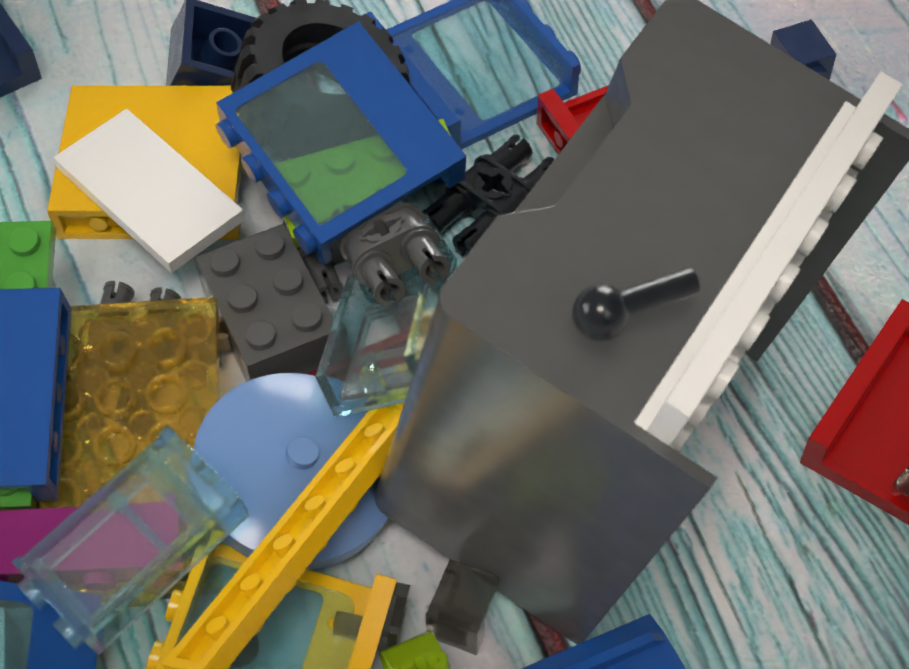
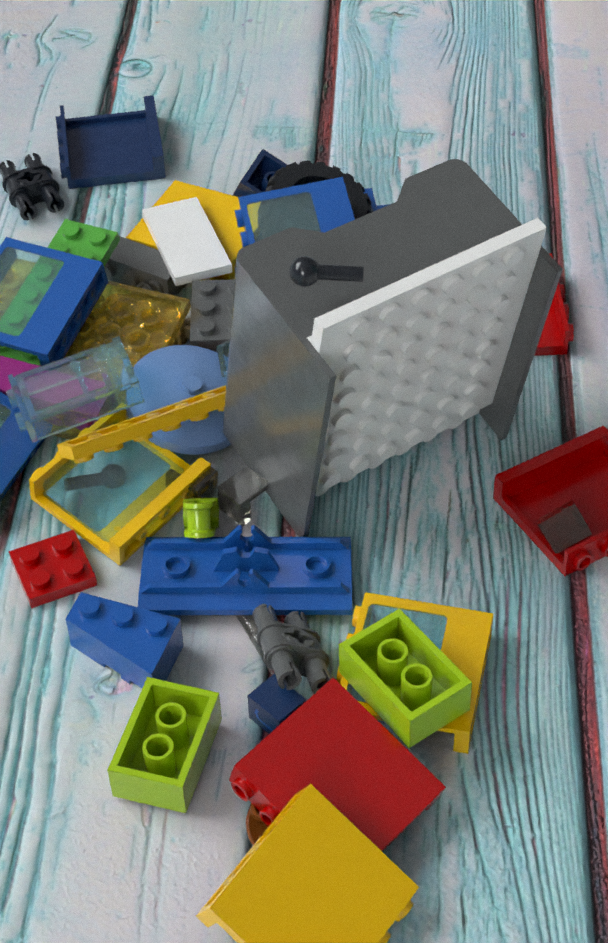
camera: 25 degrees right, 10 degrees down
(98, 251) = (140, 263): none -> dark grey brick

